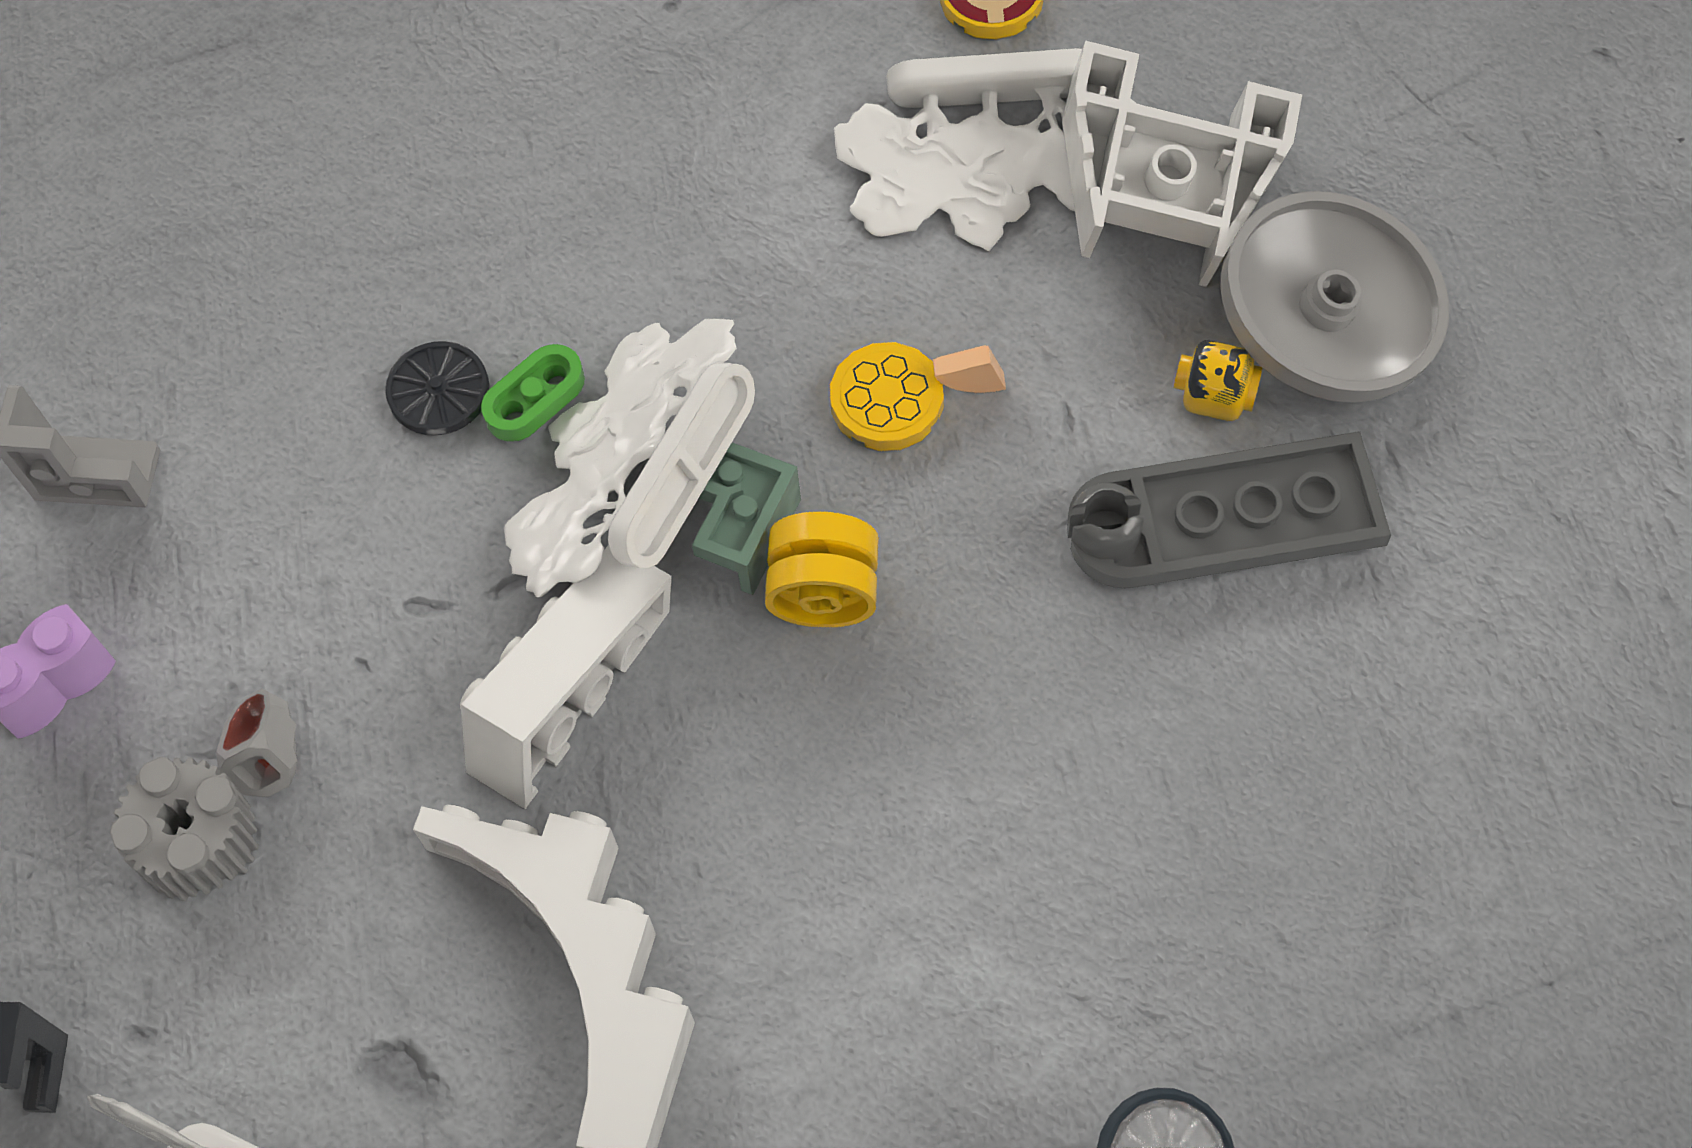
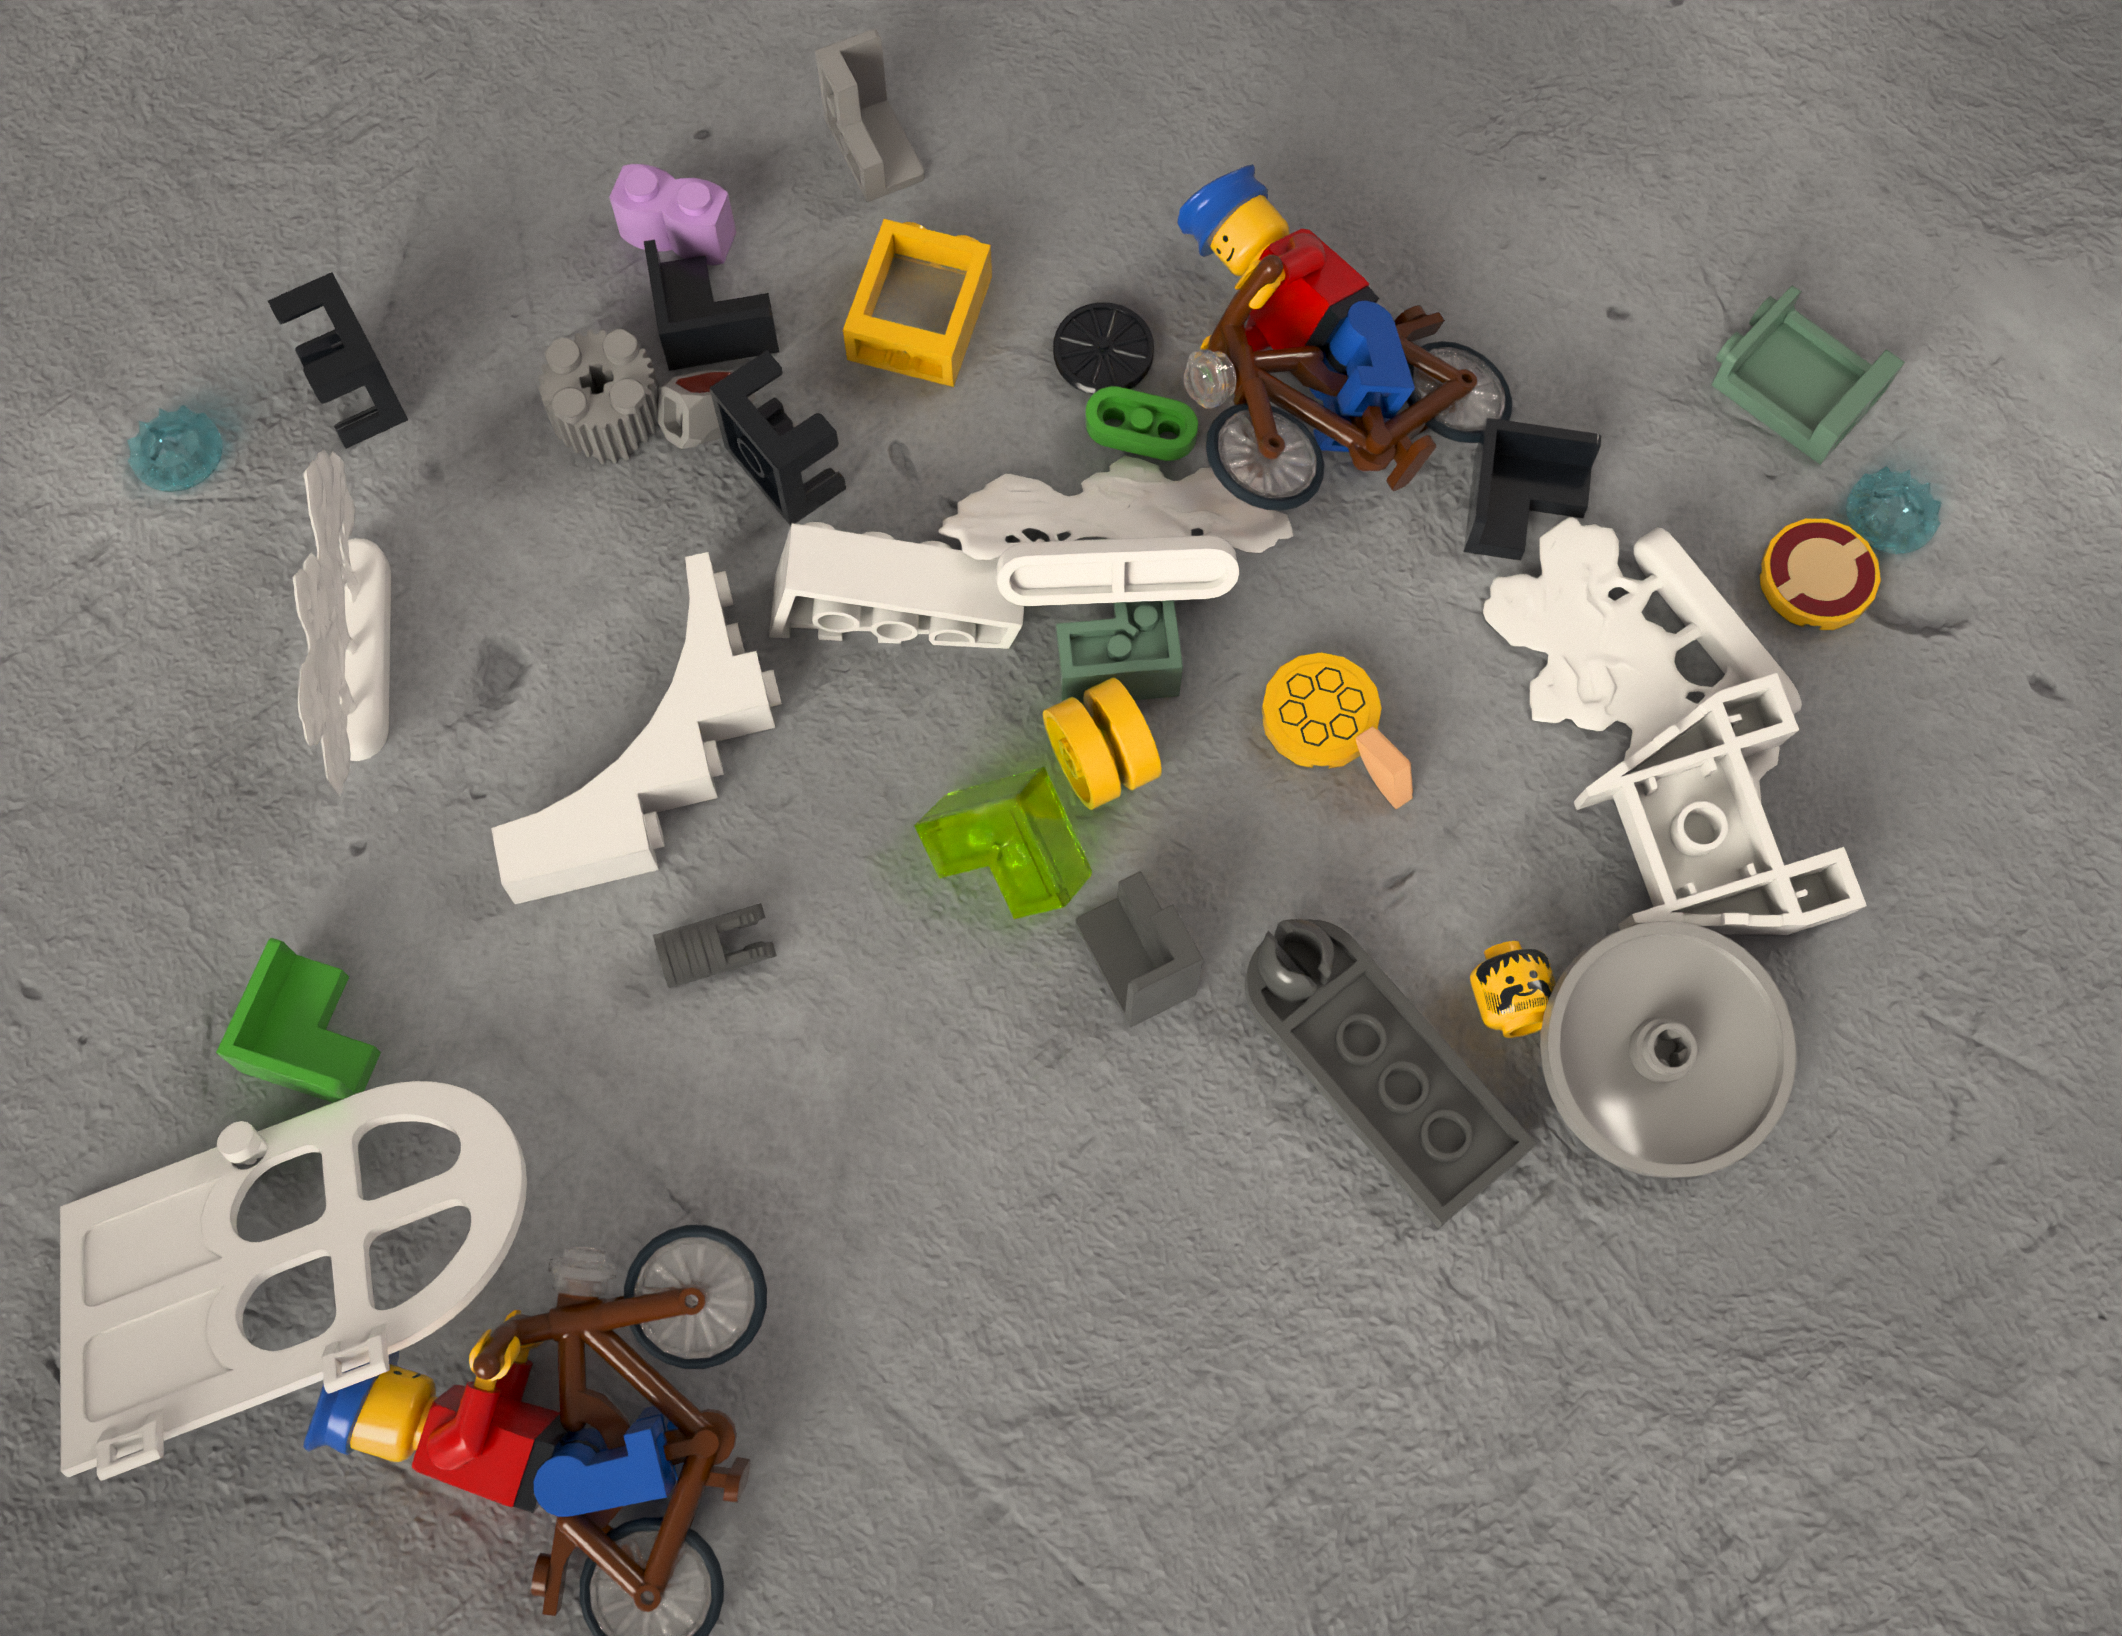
camera: 55 degrees right, 5 degrees up
(167, 715) = (697, 328): none -> black panel
(288, 508) = (918, 302): none -> yellow window
(353, 706) = (770, 446): none -> black panel
(548, 198) = (1335, 343): none -> piece
(772, 140) = (1523, 471): none -> black panel
(805, 1013) = (697, 952): none -> dark grey hinge
(850, 687) = (1017, 832): none -> clear neon green panel
(1028, 641) = (1141, 951): none -> dark grey panel

